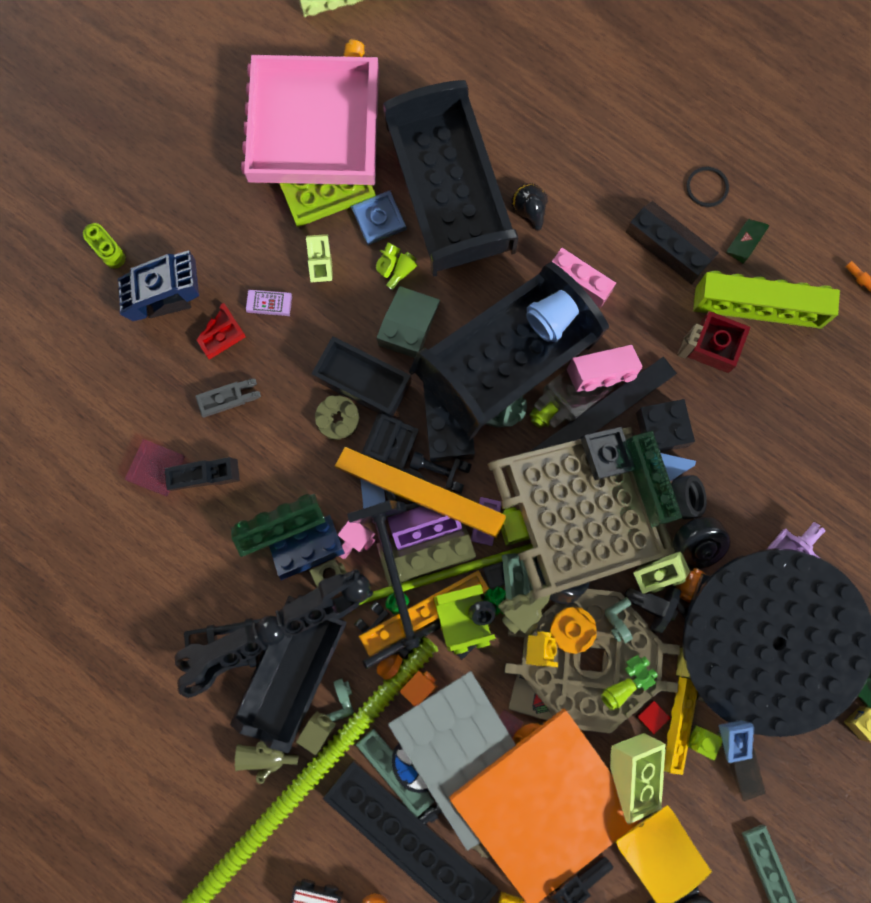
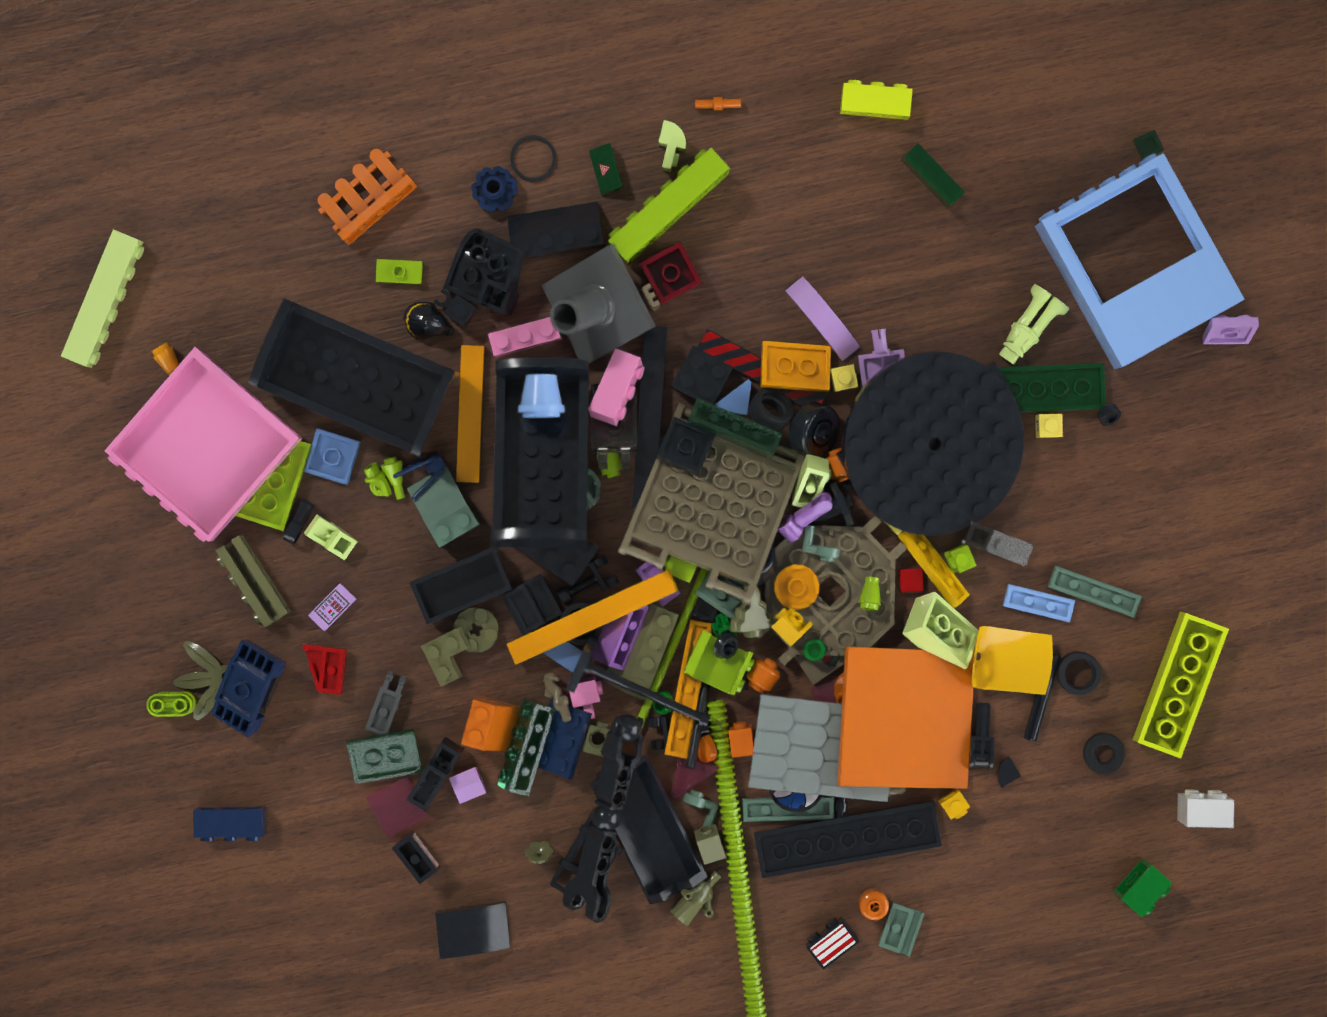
camera: 50 degrees left, 10 degrees up
(45, 355) = (229, 823): none -> dark blue brick
(100, 601) = (472, 930): none -> black slope
(125, 511) = (416, 857): none -> black brick
(138, 252) = (202, 679): none -> olive plant
(186, 426) = (384, 756): none -> clear green tile
(203, 603) = (539, 852): none -> olive plant
(213, 506) = (468, 785): none -> lavender piece
(241, 232) = (253, 581): none -> olive brick
(272, 481) = (490, 724): none -> orange slope
(298, 405) = (440, 655): none -> olive plate
(321, 227) = (299, 521): none -> black piece
(337, 512) = (554, 691): none -> dark tan animal
(354, 671) = (688, 778): none -> clear pink tile
(433, 287) = (432, 463): none -> dark blue plant
(483, 662) = (763, 675): none -> orange head
(491, 287) = (470, 413): none -> light orange tile
(537, 685) = (814, 649): none -> green tile
(548, 159) = (399, 271): none -> lime plate
(559, 217) = (457, 308): none -> black brick
(577, 107) = (366, 214): none -> orange fence
(604, 214) = (486, 271): none -> black slope
(616, 587) = (794, 525): none -> medium lavender piece
(642, 676) = (865, 563): bright green piece -> none
(653, 307) = (597, 305): none -> dark grey piece
(664, 176) = (489, 178): none -> dark blue plant
(707, 467) = (749, 365): none -> tile
(724, 837) = (1038, 603): none -> light blue tile
(734, 489) = (795, 366): none -> light orange plate
(737, 740) = (976, 538): medium blue slope -> none
(758, 532) = (843, 378): none -> light yellow brick
(786, 482) = (823, 318): none -> lavender slope
(808, 268) = (673, 139): none -> yellowish green brick

